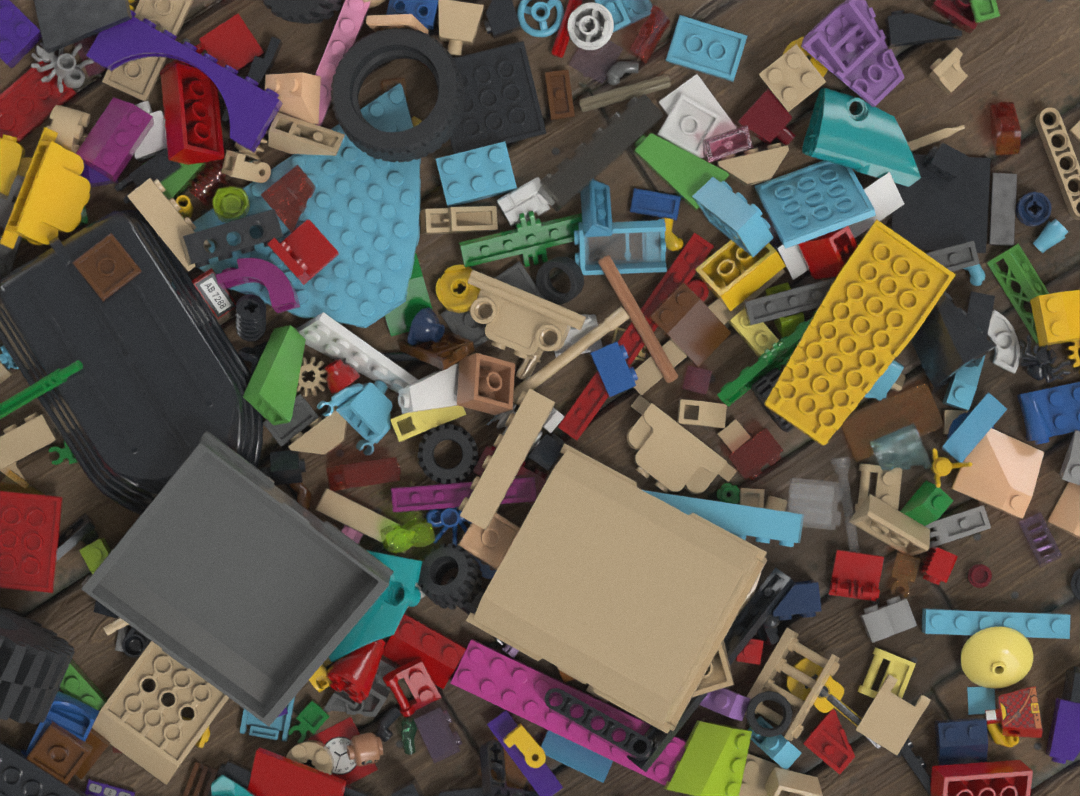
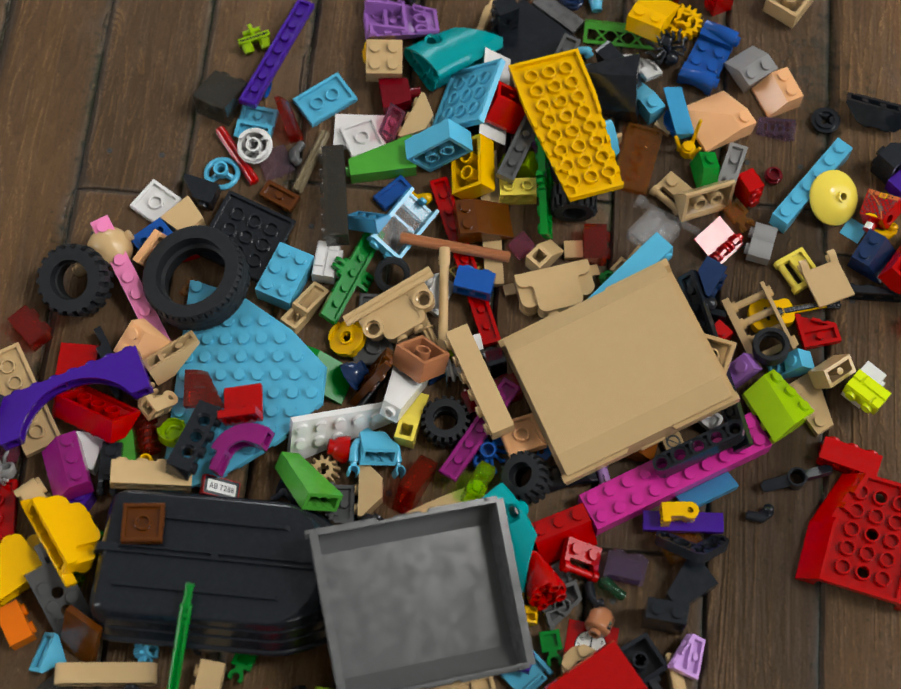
camera: 50 degrees left, 20 degrees down
(250, 318) = (255, 475): black piece -> none
(900, 449) = (659, 162): clear light blue slope -> none

